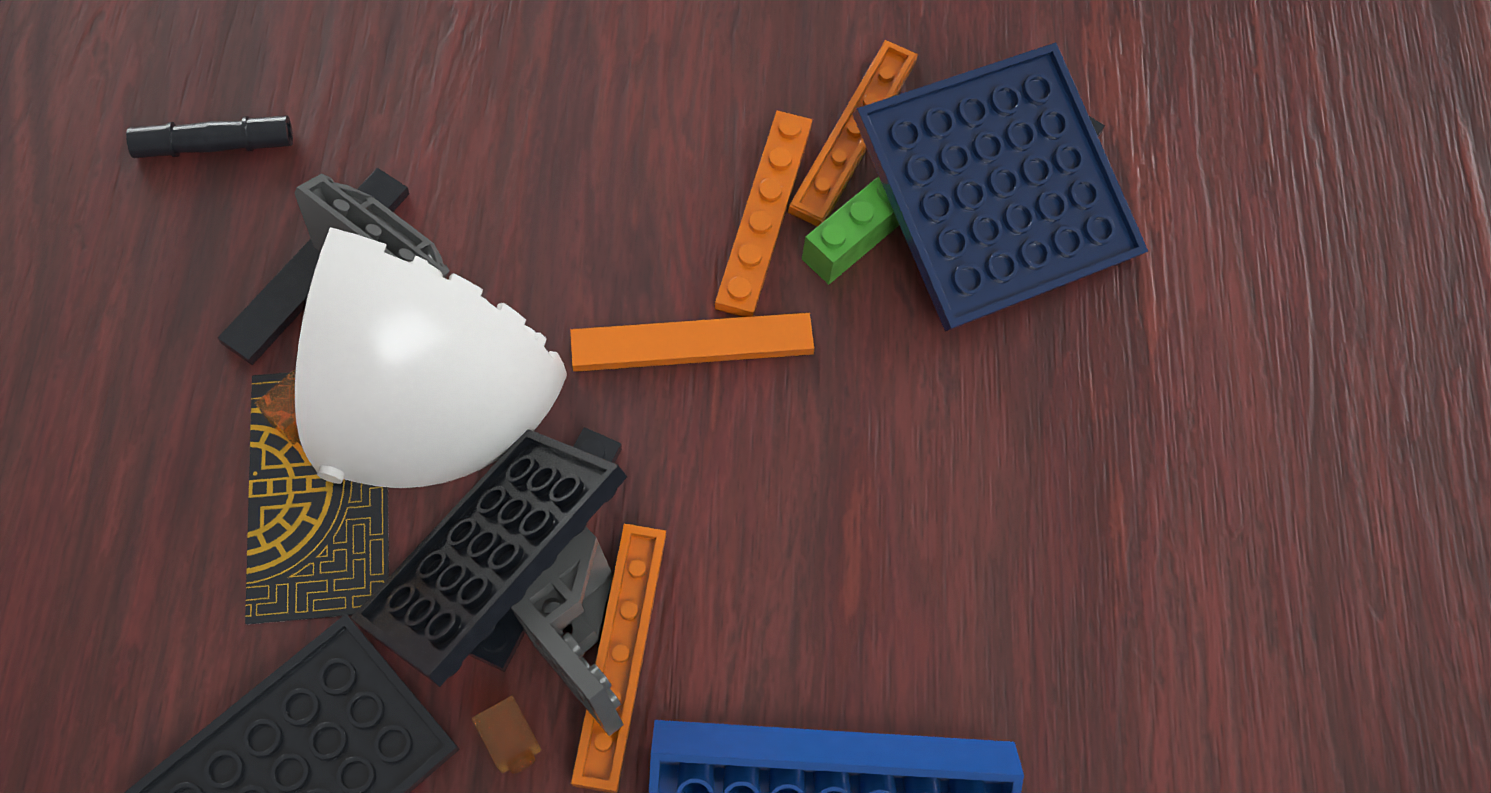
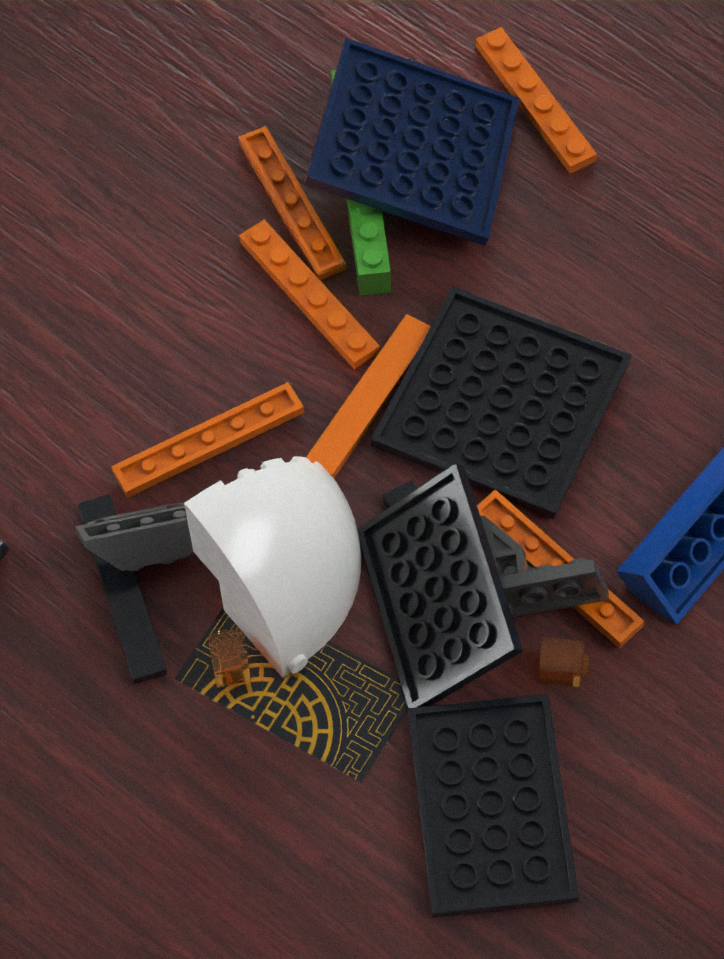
camera: 45 degrees left, 5 degrees down
(530, 231) = (207, 439): none -> orange plate
(781, 472) = (502, 400): none -> black plate
(1162, 271) = (536, 100): none -> orange plate

